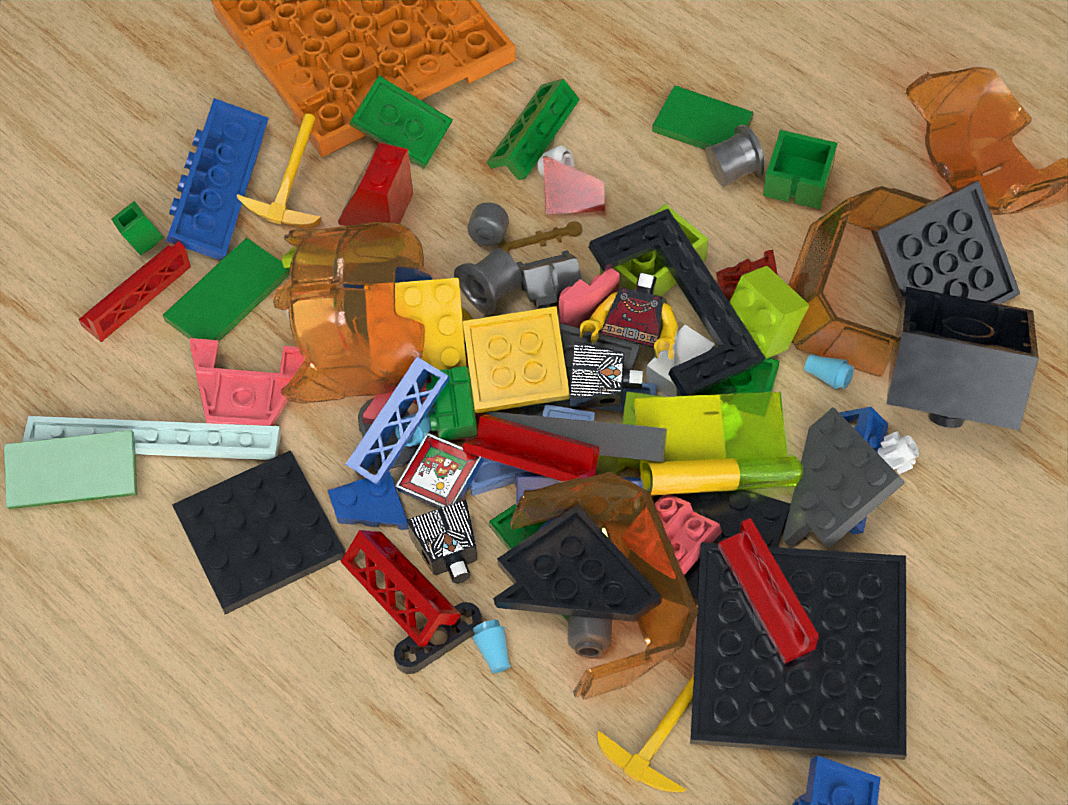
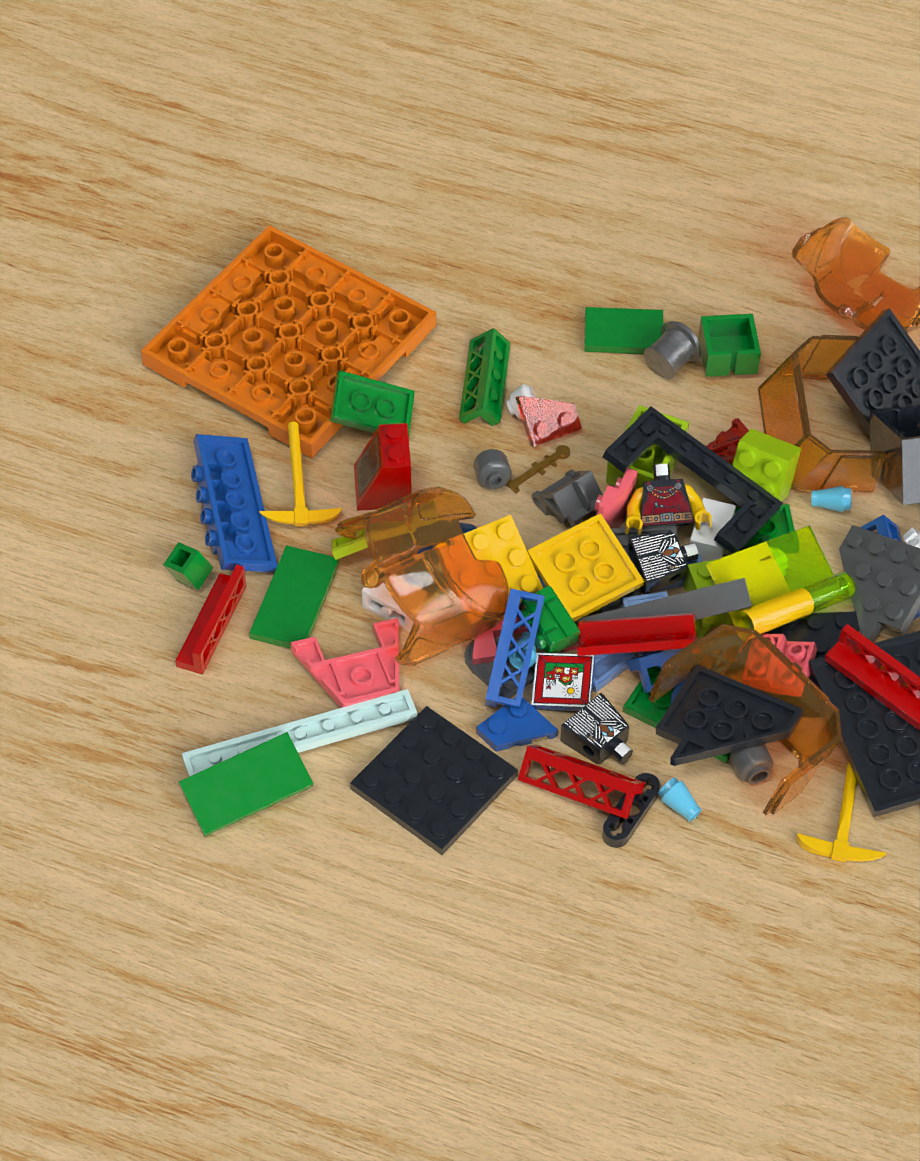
camera: 25 degrees left, 5 degrees down
(488, 280) = (527, 507): flat silver piece -> none

